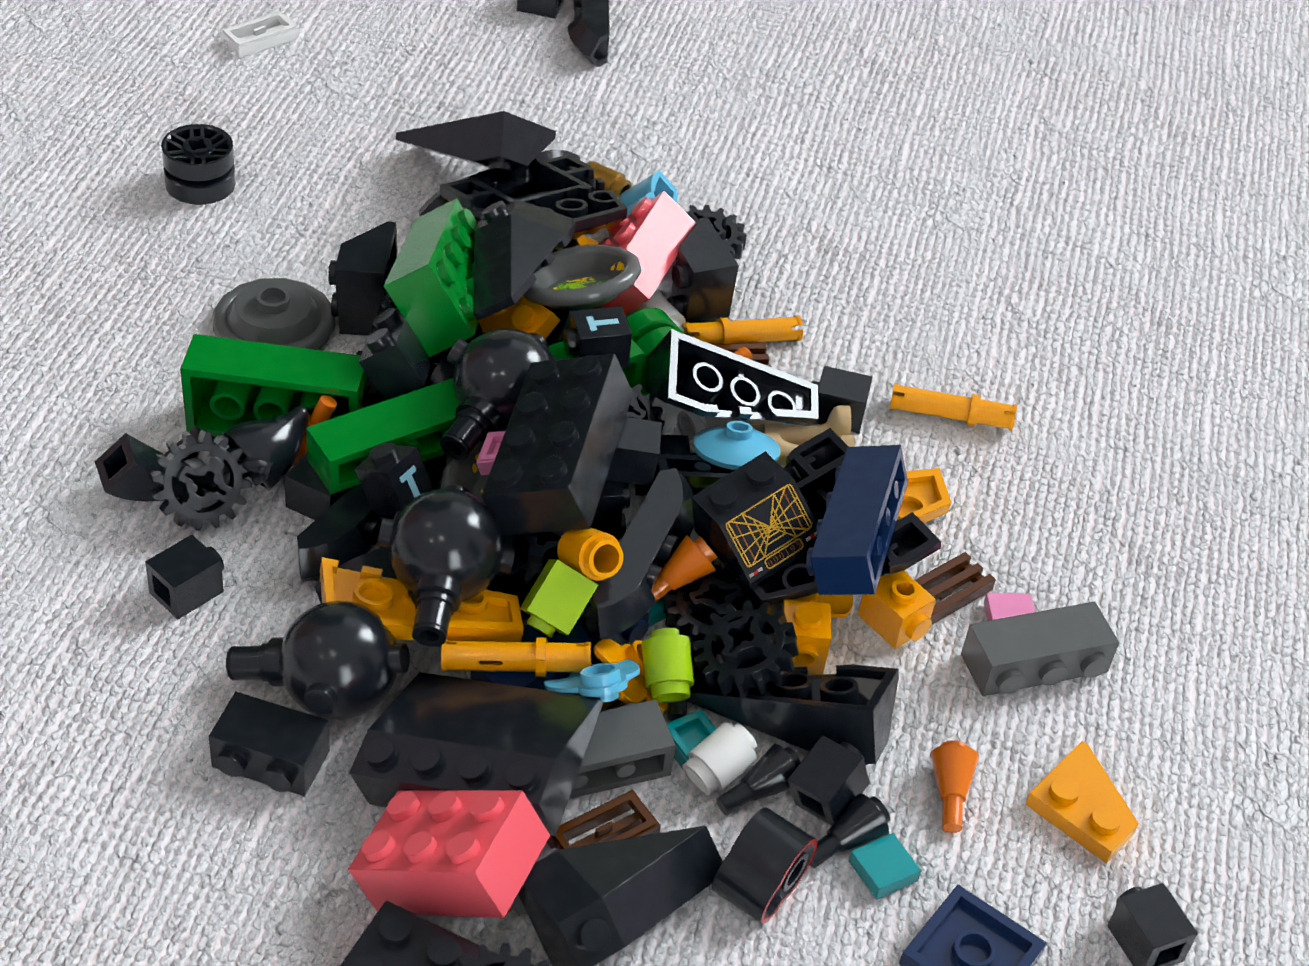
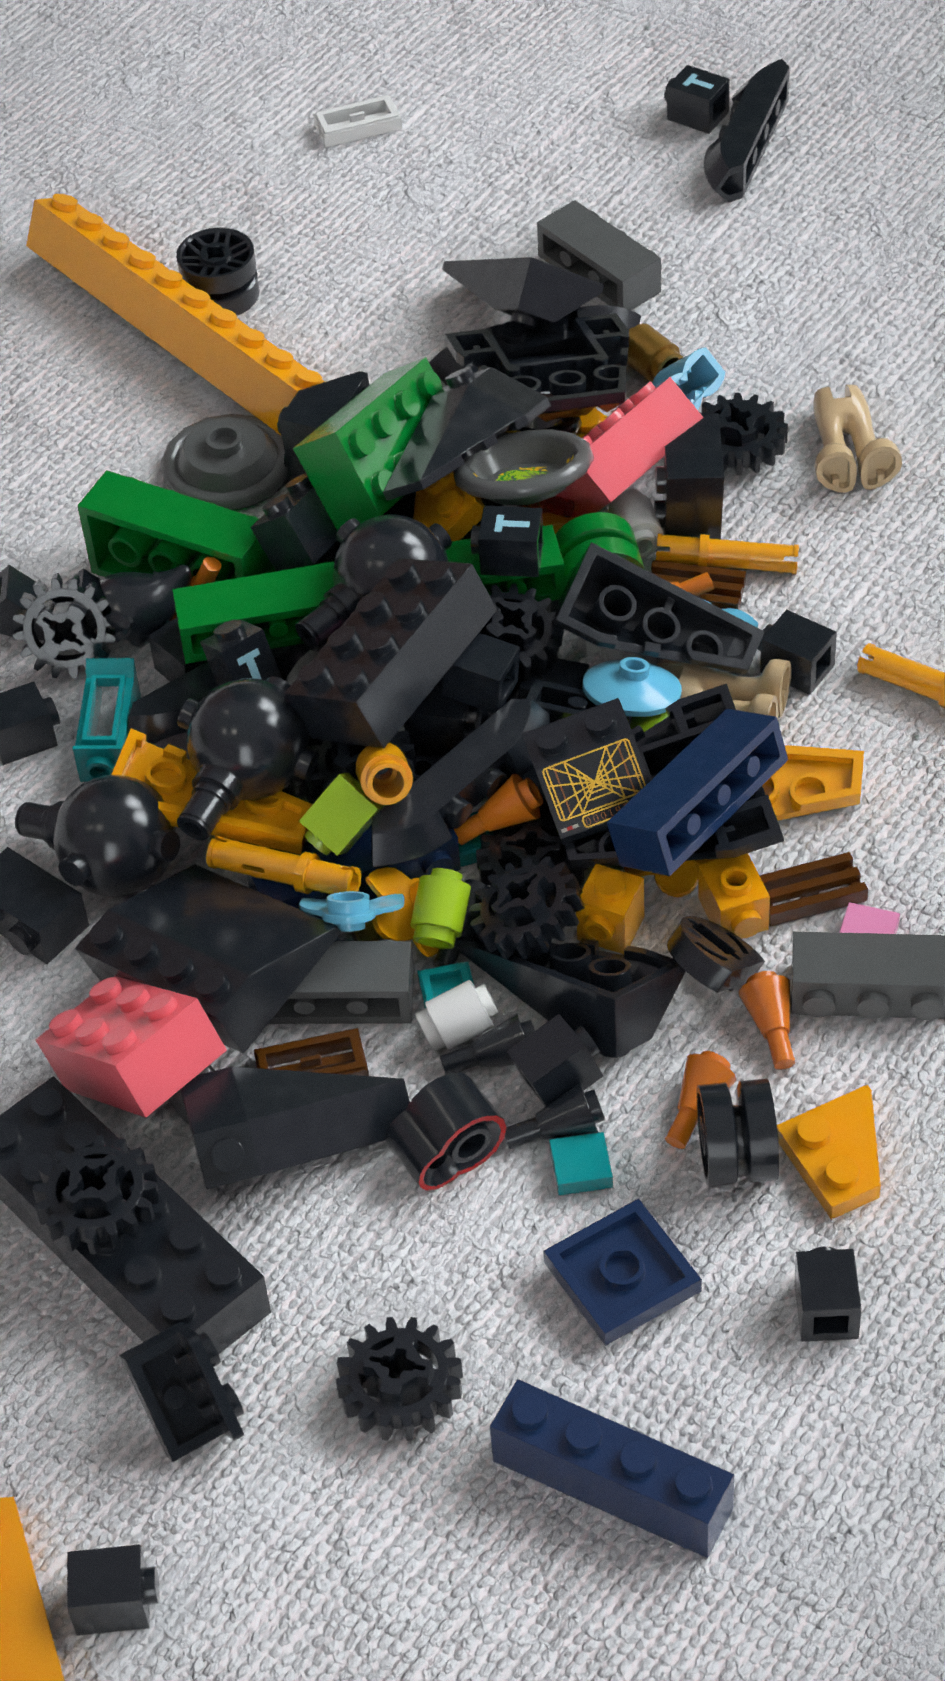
camera: 30 degrees right, 5 degrees up
(174, 199) = (167, 308): none -> light orange brick
(270, 559) = (104, 715): none -> teal window
(496, 95) = (599, 251): none -> dark grey brick
(805, 243) = (835, 465): none -> tan piece
(912, 657) = (713, 954): none -> black piece
(970, 691) = (768, 1003): none -> orange cone
(1014, 805) = (737, 1132): none -> black wheel

